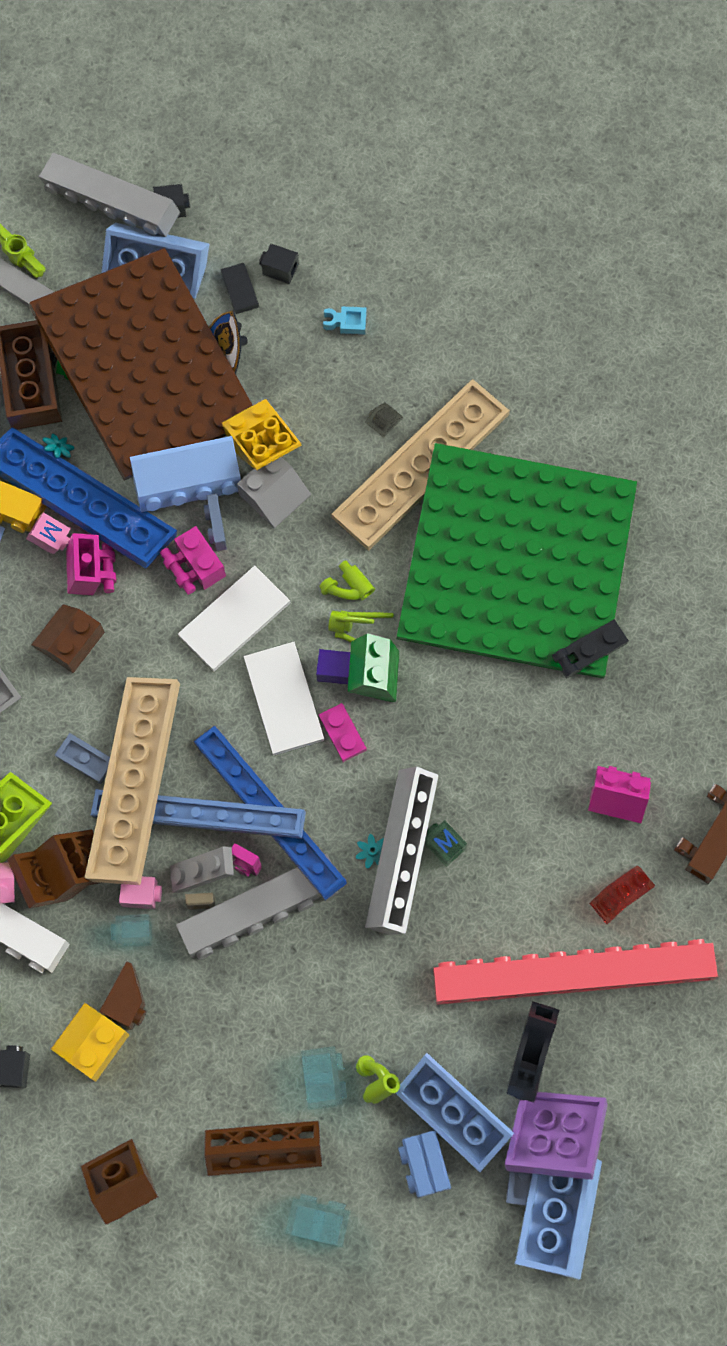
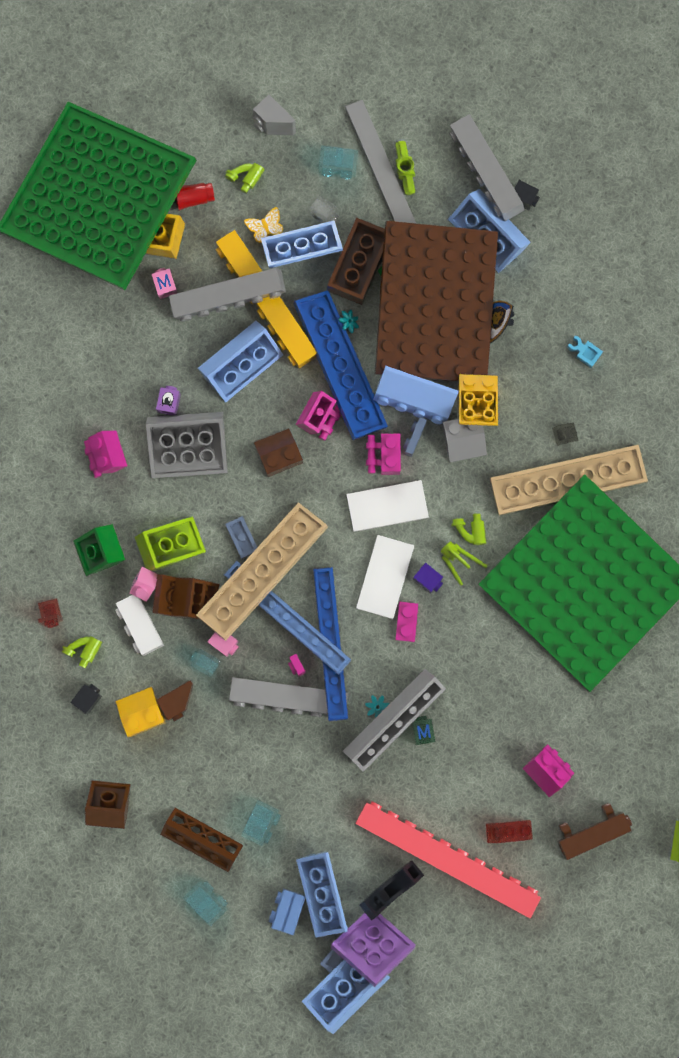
camera: 30 degrees right, 10 degrees up
(49, 534) = (307, 378): bright pink brick -> none
(200, 901) = (255, 671): dark tan tile -> none
(201, 869) = (267, 654): light grey plate -> none
(239, 288) = (531, 284): black tile -> none
(279, 263) = (567, 284): black brick -> none
(374, 667) = (450, 596): green slope -> none
(383, 1087) = (291, 852): lime plant -> none
(591, 648) = (592, 670): black plate -> none

